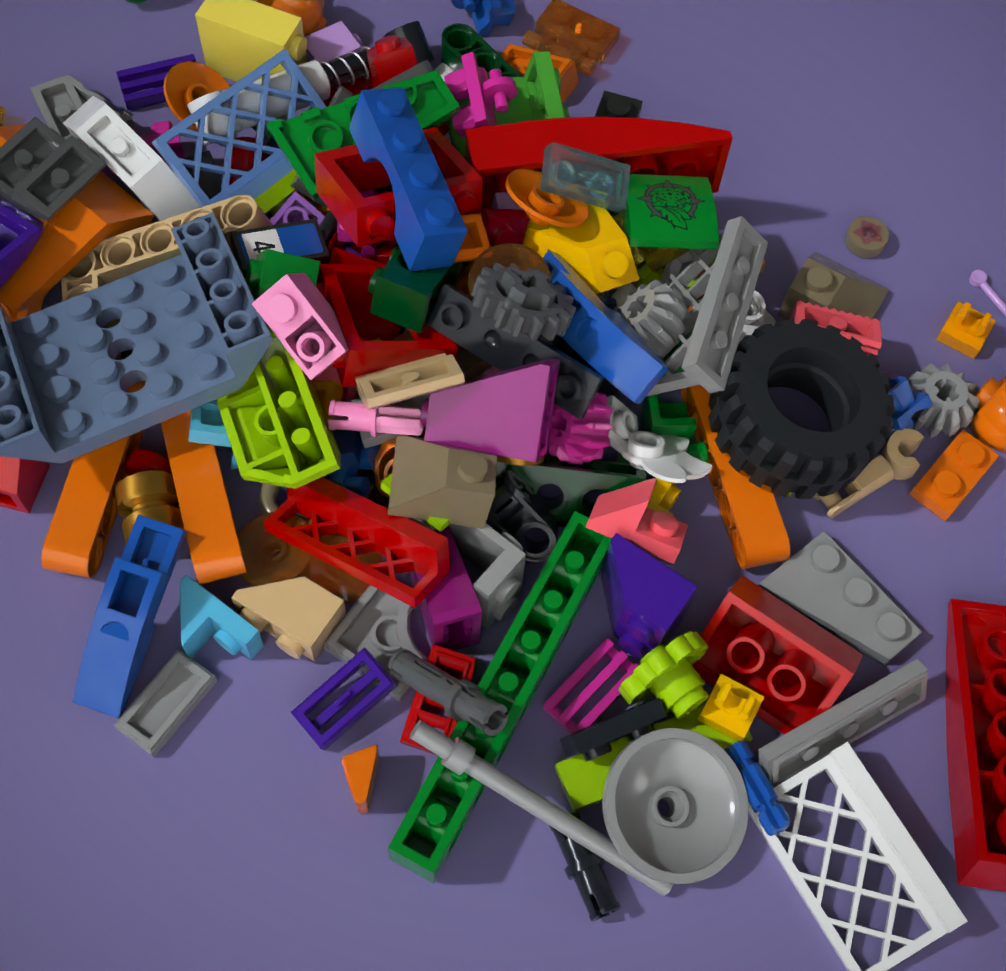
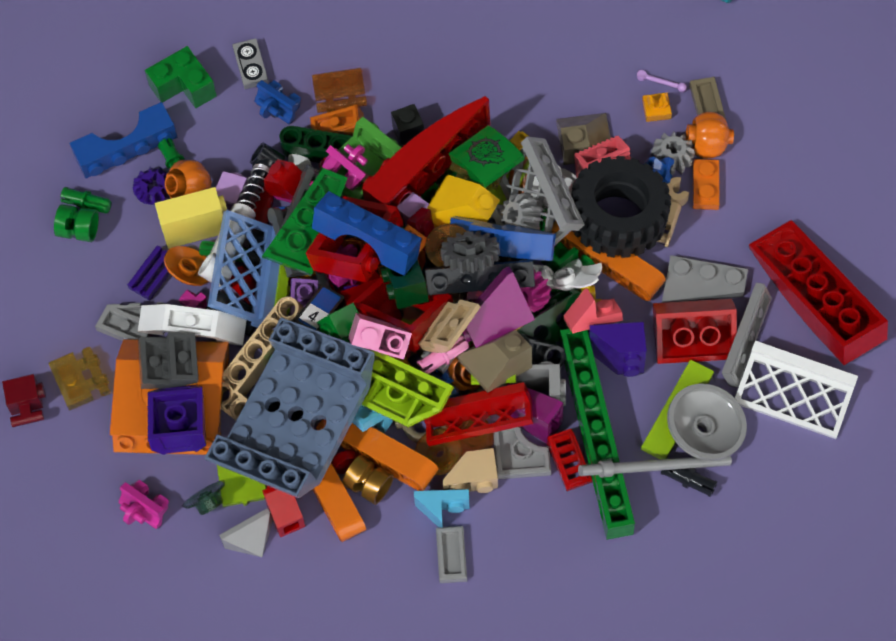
camera: 30 degrees left, 0 degrees up
(126, 616) = (407, 527): blue slope -> none
(357, 712) = (524, 513): dark purple tile -> none
(360, 773) = (565, 516): orange slope -> none
(459, 698) = (585, 446): dark grey pin -> none
(543, 206) = (430, 193): orange dish -> none
(585, 177) = (439, 169): clear light blue plate -> none
(595, 739) = (659, 404): black plate -> none
(618, 660) = (630, 383): dark pink tile -> none
(669, 676) = (660, 371): lime plant -> none
(730, 708) = (695, 365): yellow tile -> none
(759, 790) = (738, 391): blue axle -> none
(866, 237) = (574, 93): dark tan tile -> none

